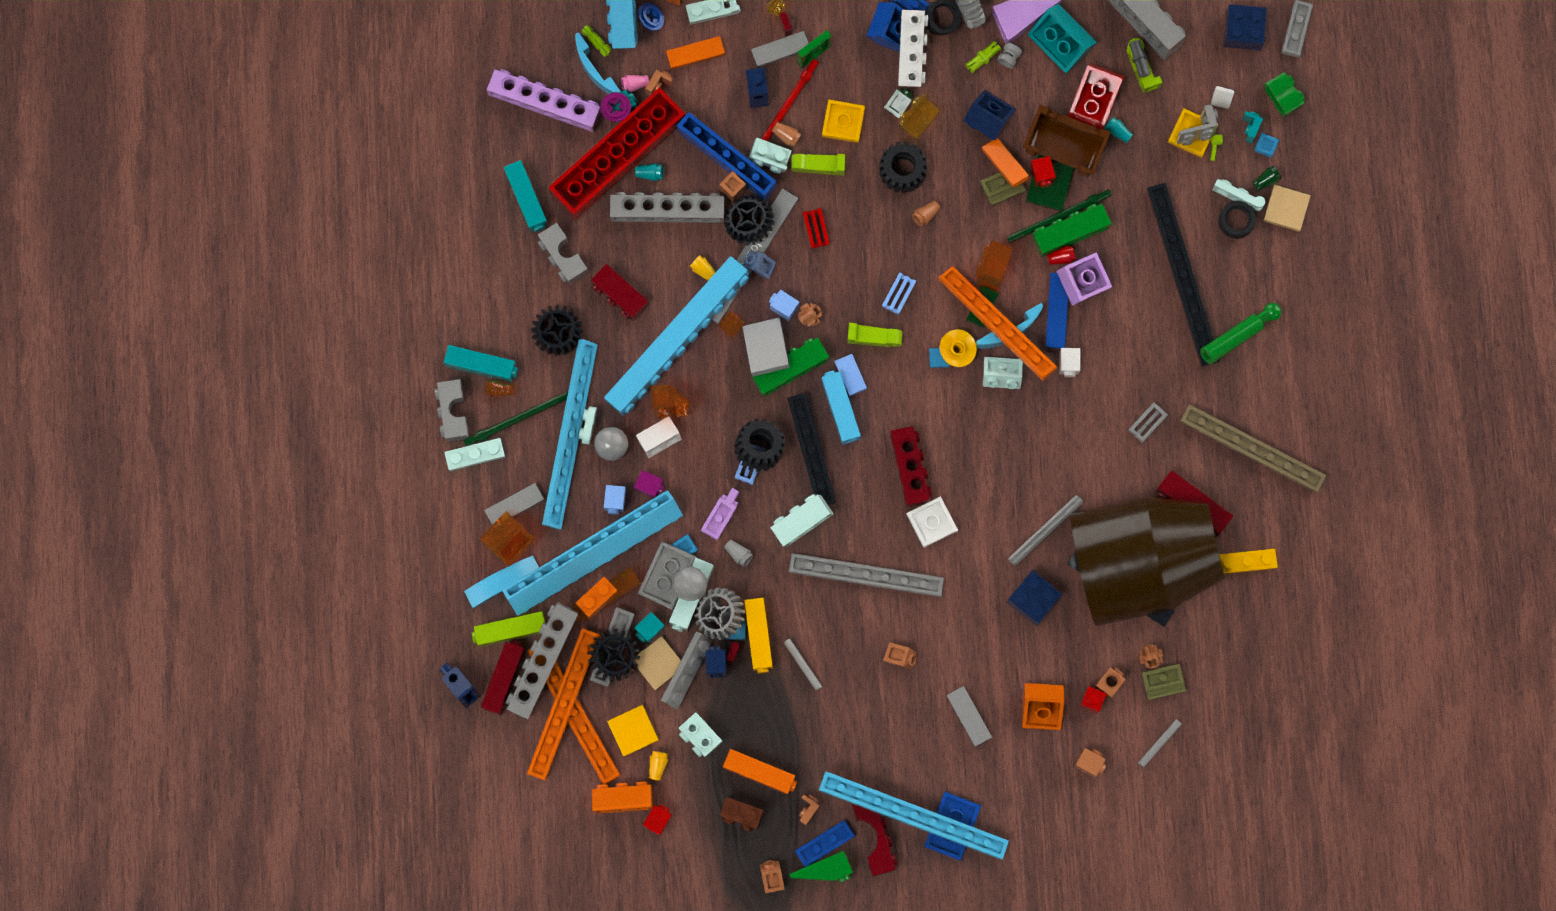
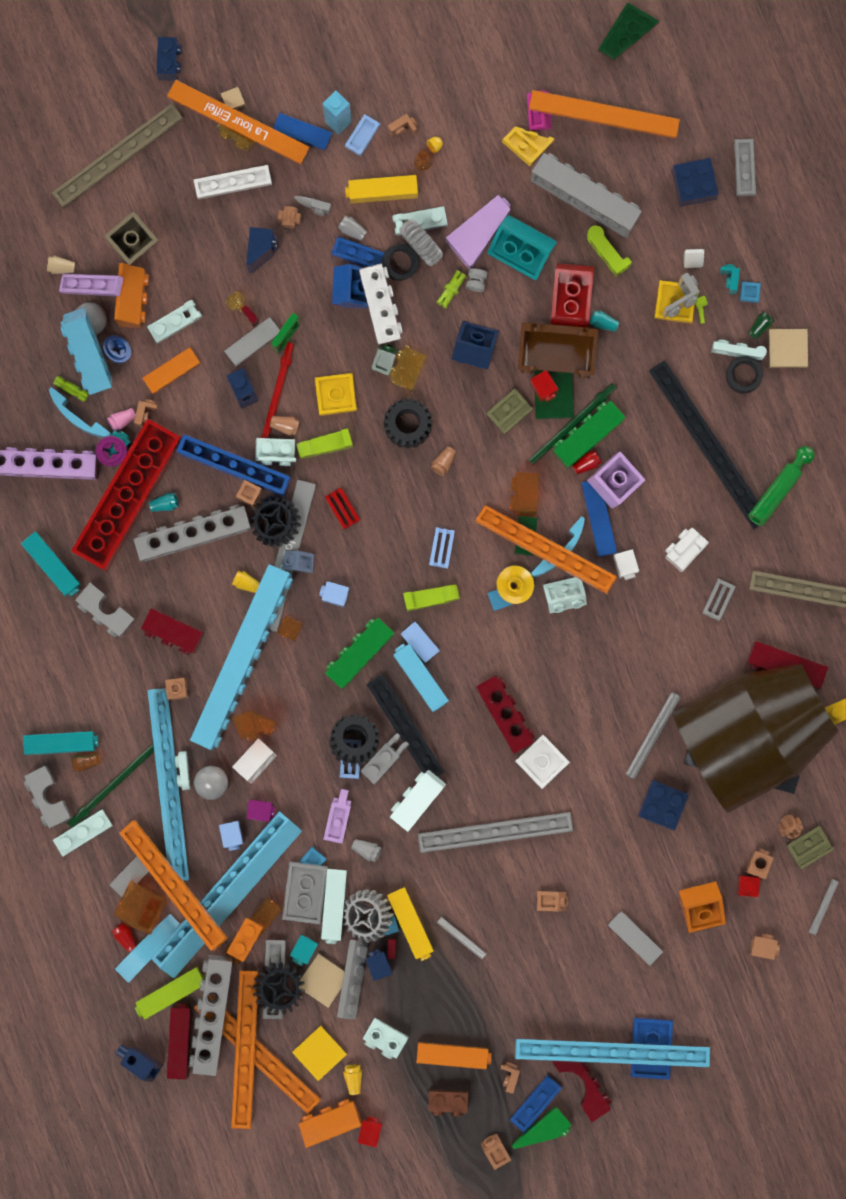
camera: 15 degrees left, 5 degrees up
(483, 563) = (124, 937): none -> red cone
(545, 527) = (173, 885): none -> orange plate
(563, 328) = (115, 692): black gear -> none
(606, 347) = (176, 689): none -> nougat brick
(690, 584) = (330, 898): light grey piece -> none
(765, 347) = (330, 641): light grey tile -> none
(781, 473) = (383, 760): none -> light grey hinge
(810, 314) = (362, 596): nougat gear -> none
(1005, 163) = (505, 388): orange tile -> none
(1131, 365) = (686, 549): none -> white brick
(1139, 58) = (603, 246): dark grey axle -> none
(1284, 95) = (752, 237): green brick -> none

